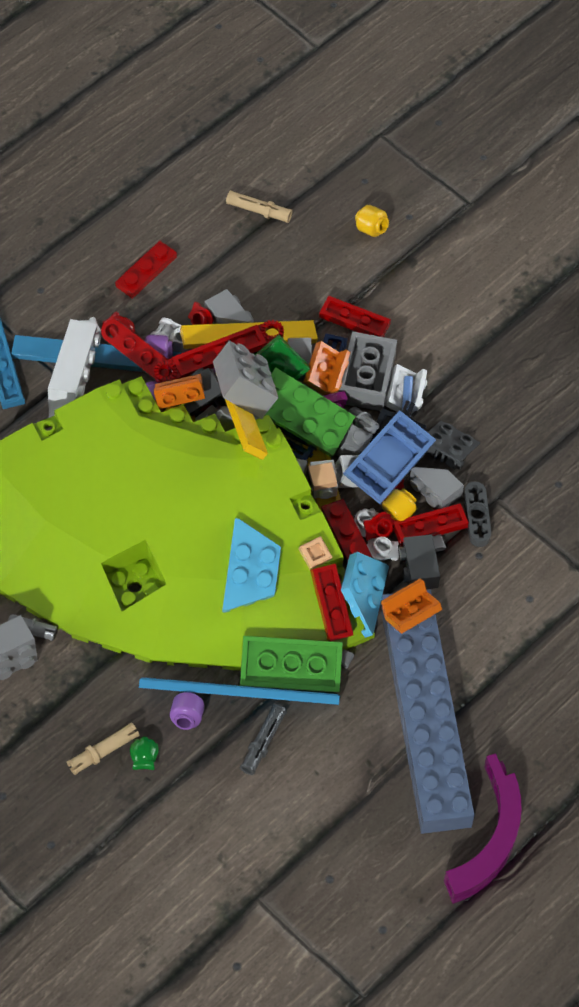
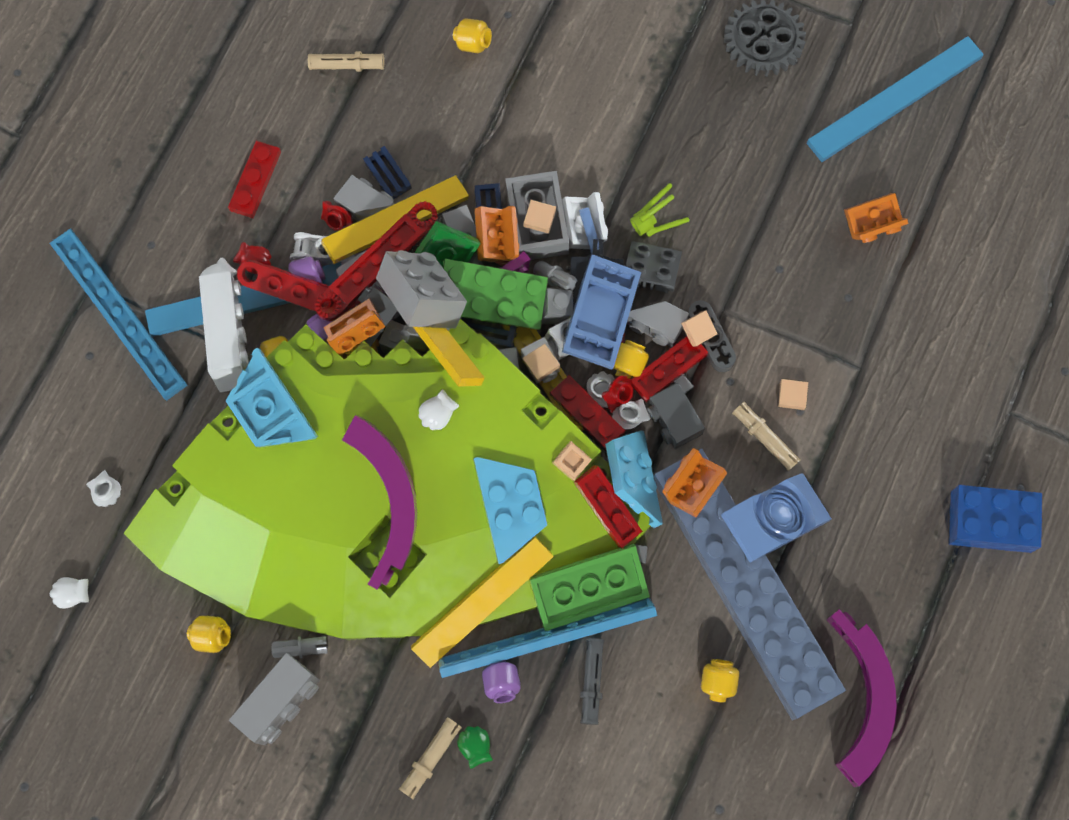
camera: 15 degrees left, 15 degrees up
(84, 422) = (267, 407): none -> medium azure wing
(163, 528) = (400, 490): none -> magenta arch
(196, 641) = (481, 601): none -> yellow tile
(220, 471) = (437, 411): none -> white animal
(254, 286) = (376, 157): none -> dark blue tile
(354, 317) = (498, 156): red plate -> none
(368, 368) = (539, 216): none -> light nougat tile
(371, 775) = (720, 680): none -> yellow head
(458, 406) = (644, 220): none -> lime plant
(467, 500) = (699, 328): none -> light nougat tile
(472, 663) = (775, 517): none -> medium blue slope
(487, 597) = (766, 436): none -> tan pin
(528, 582) = (793, 394): none -> light nougat tile

